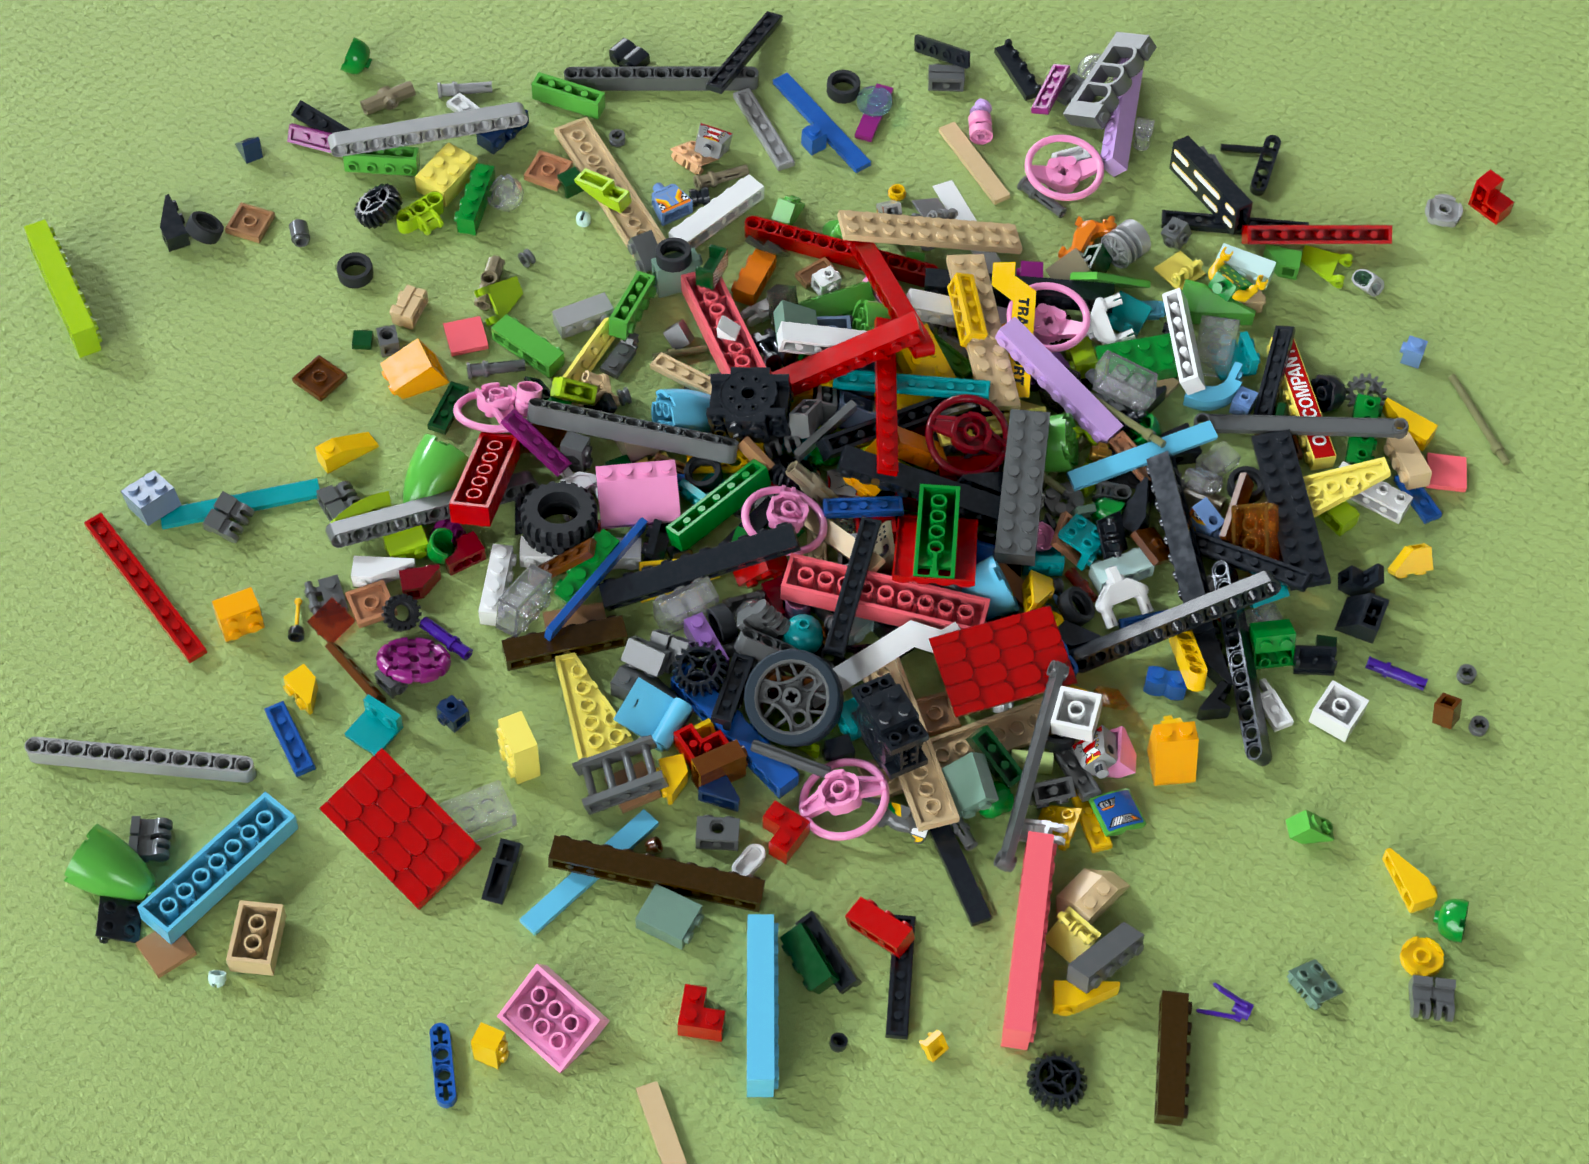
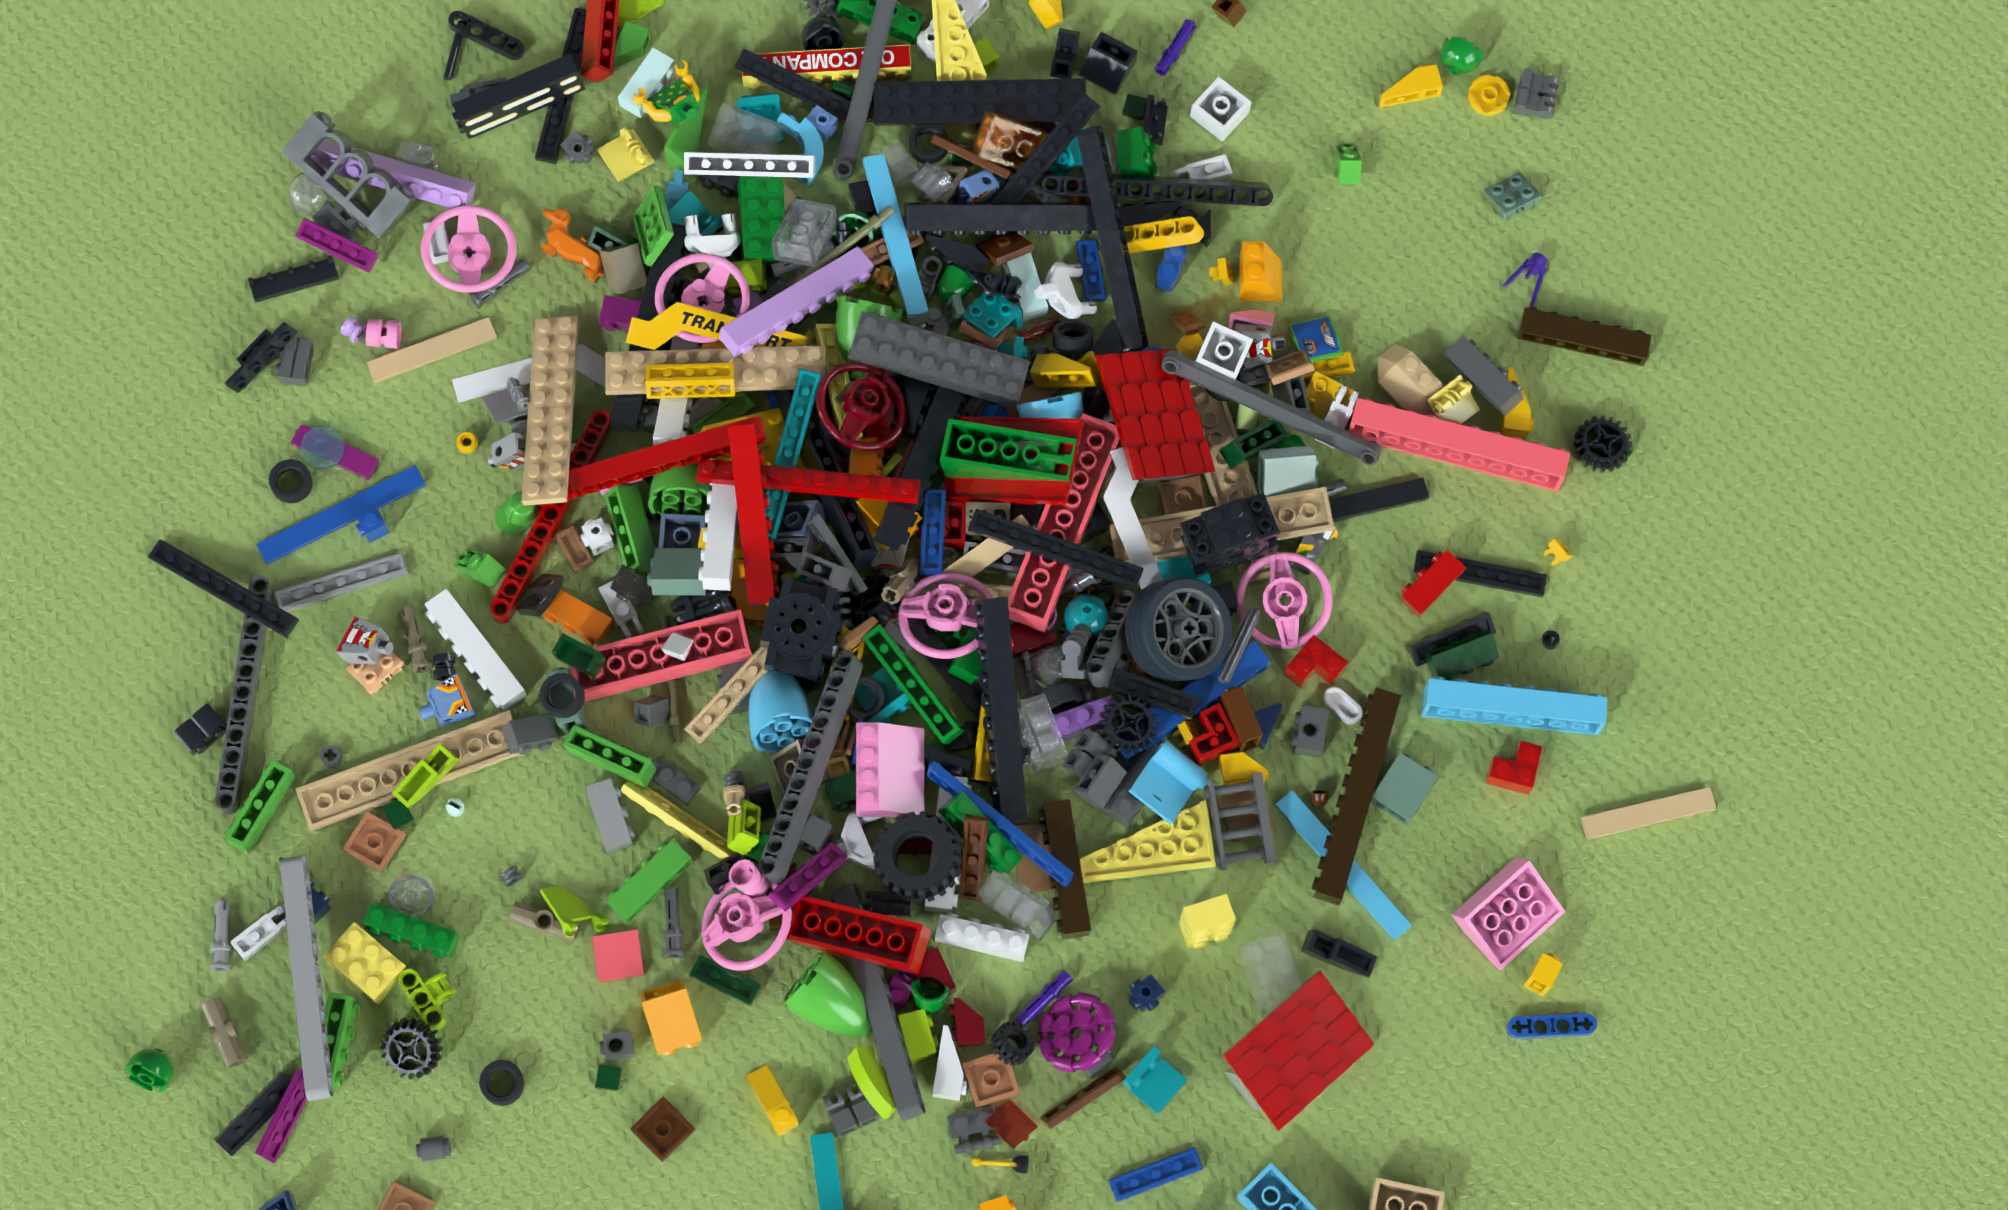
camera: 85 degrees left, 15 degrees up
(303, 687) = (1095, 1156): yellow slope -> none
(409, 306) = (569, 1019): tan brick -> none
(1076, 776) = (1288, 367): none -> medium nougat tile
(1126, 243) = (589, 202): light grey wheel -> none

